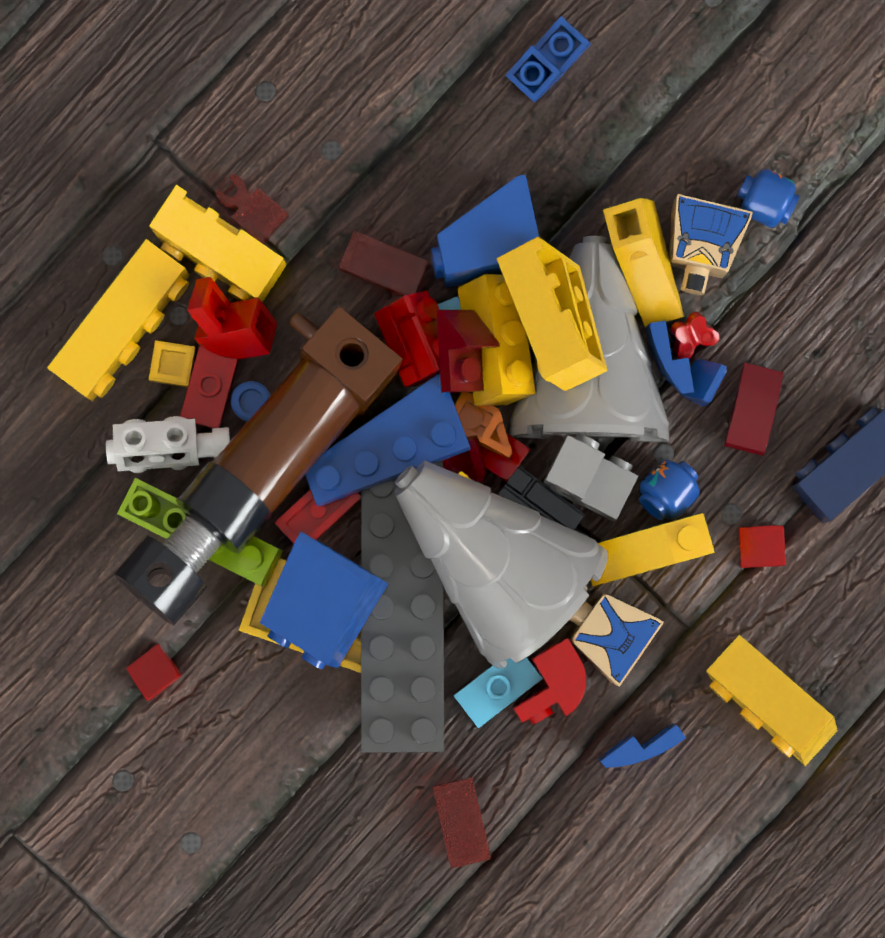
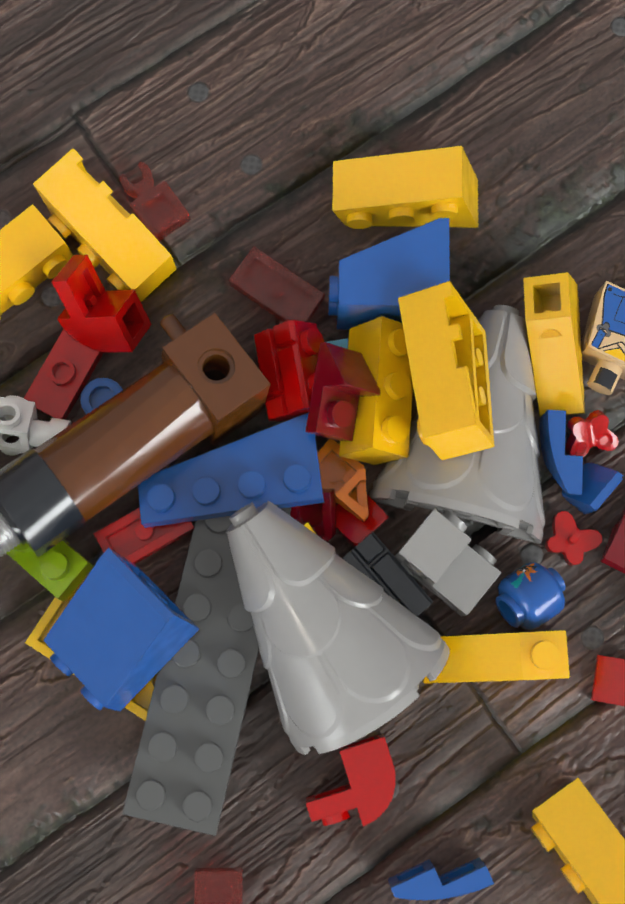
camera: 15 degrees right, 5 degrees down
(172, 363) = (30, 342): yellow tile -> none
(480, 148) = (406, 189): none -> yellow wedge
(496, 689) = (291, 776): medium azure plate -> none
(548, 59) = (497, 121): blue slope -> none
(613, 635) = (436, 745): torso -> none
(694, 432) = (570, 539): none -> red piece

